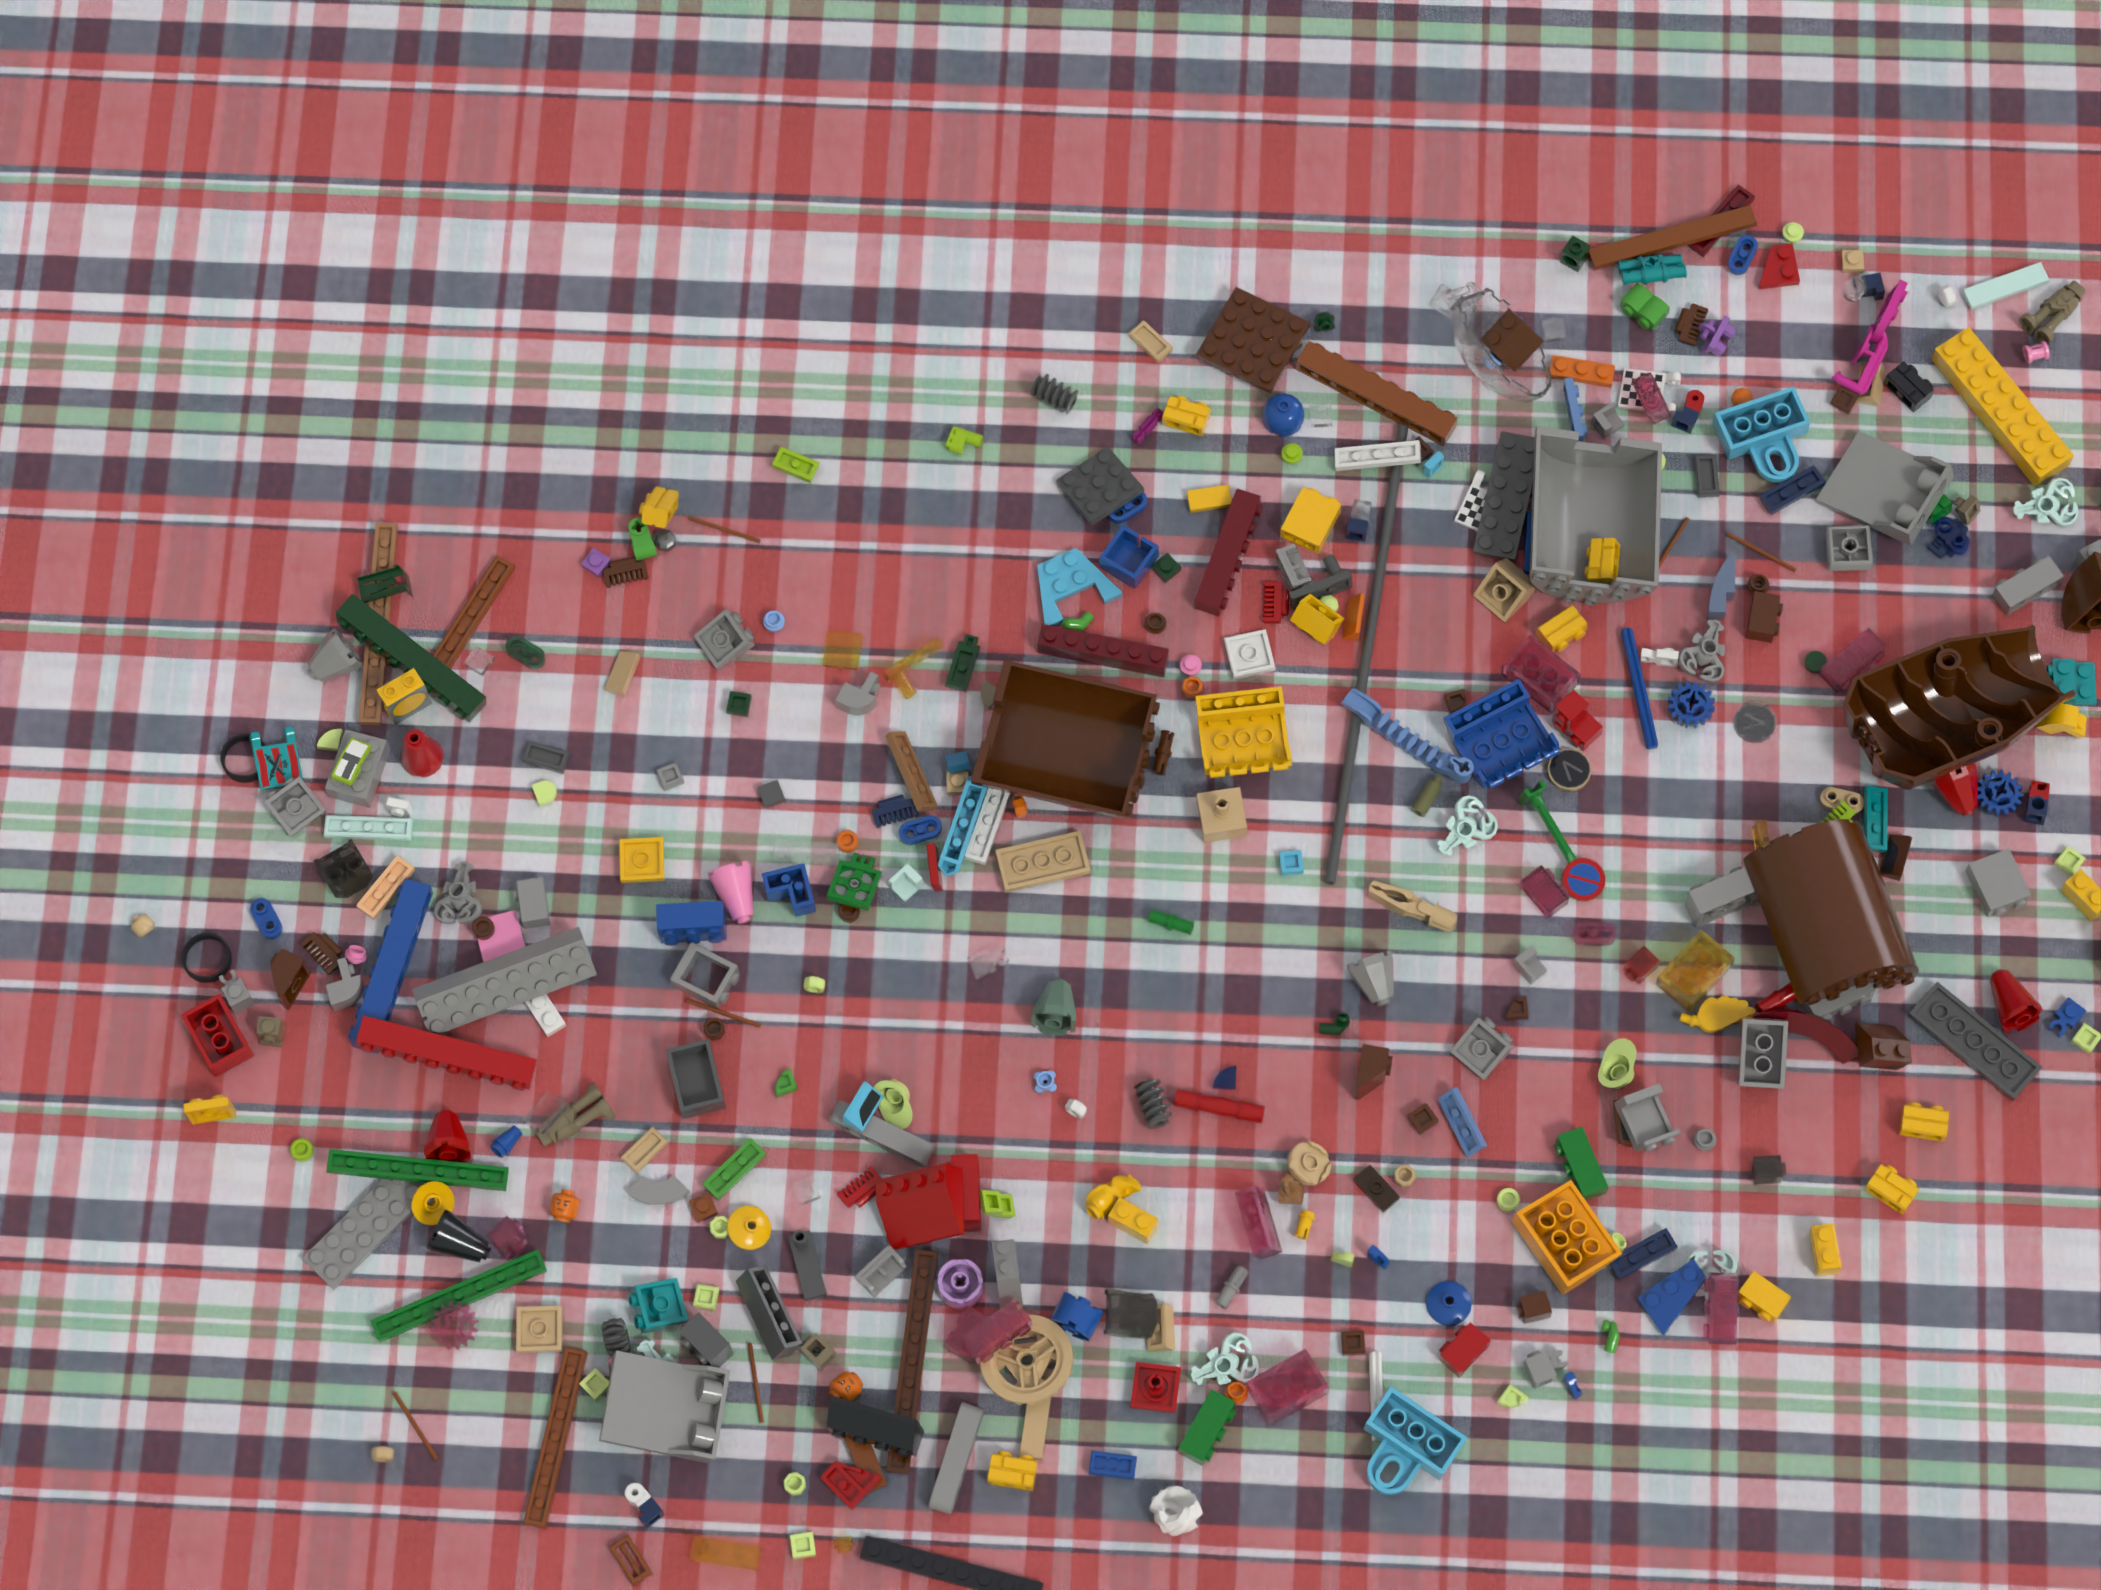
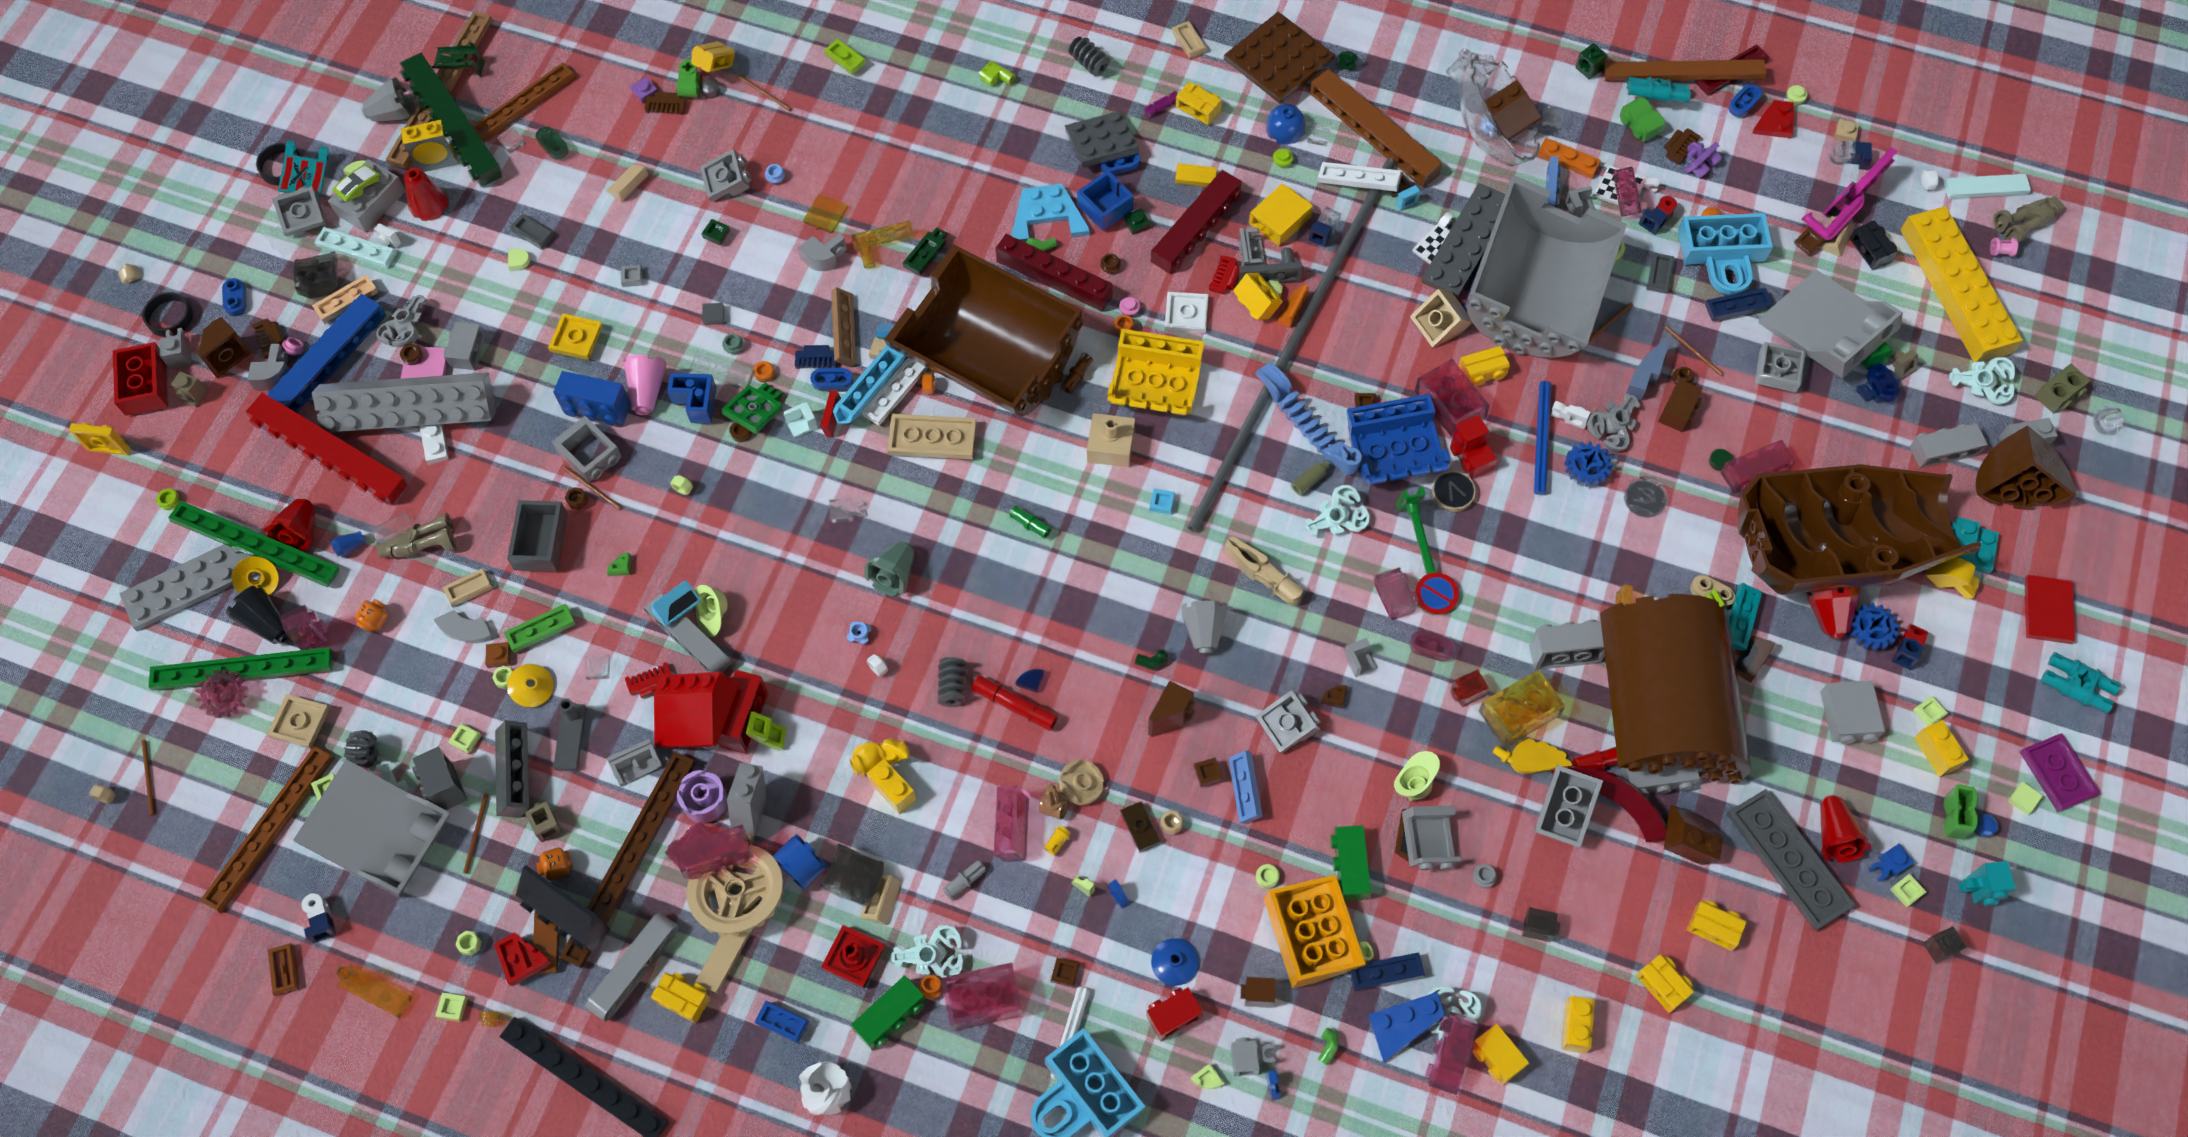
camera: 15 degrees right, 5 degrees down
(657, 1305) = (413, 731): teal plate -> none
(804, 821) = (732, 343): none -> sand green plate
(1603, 560) = (1541, 312): yellow brick -> none

